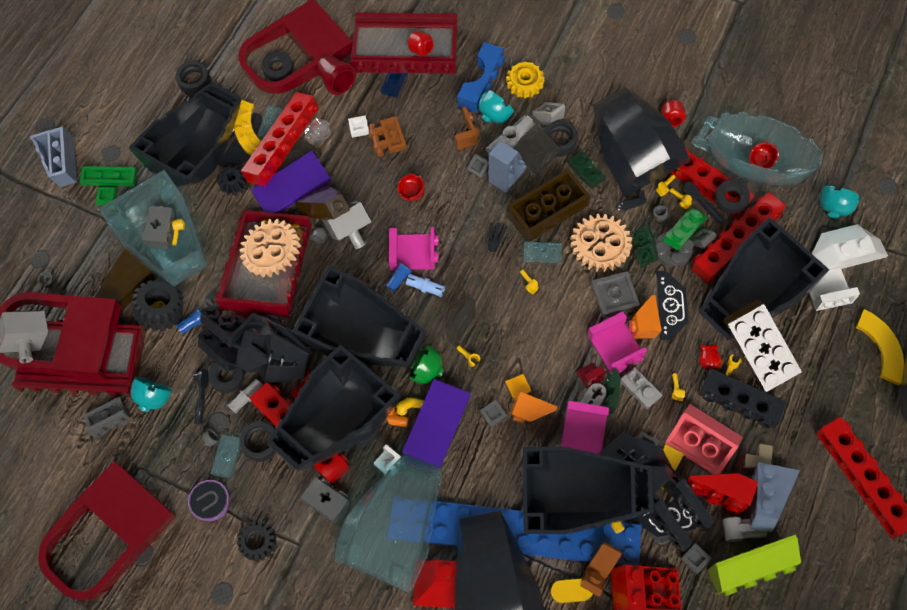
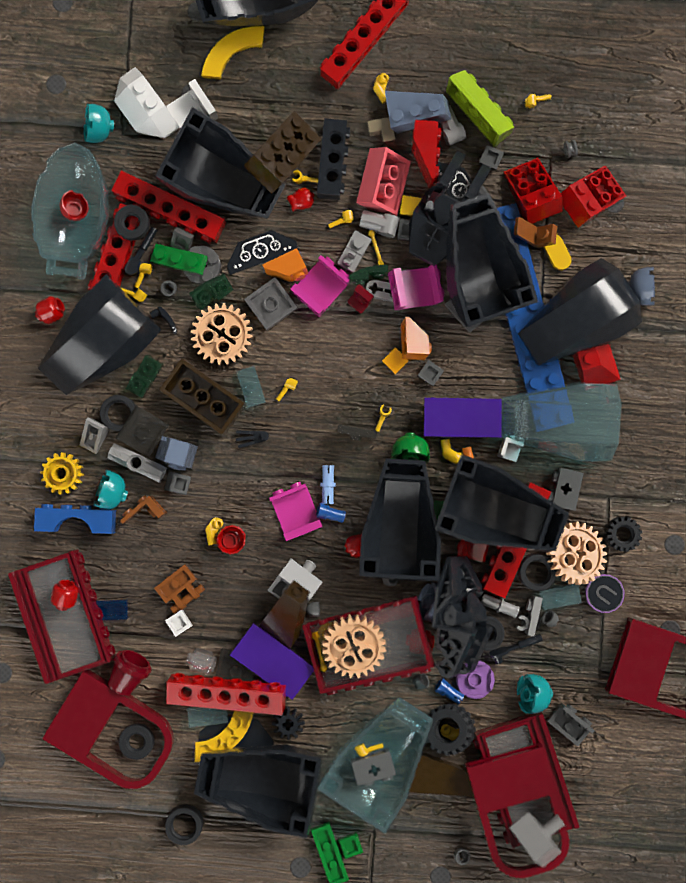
camera: 115 degrees left, 20 degrees up
(186, 351) = (478, 683): none -> medium lavender tile
(217, 417) = (533, 607): none -> light grey plate
(248, 501) = (577, 554): none -> light nougat gear
(428, 178) = (211, 530): none -> yellow arm
(620, 409) = (371, 233): none -> yellow hinge
(659, 424) = (384, 224): none -> light grey piece
(809, 476) = (380, 85): none -> yellow arm

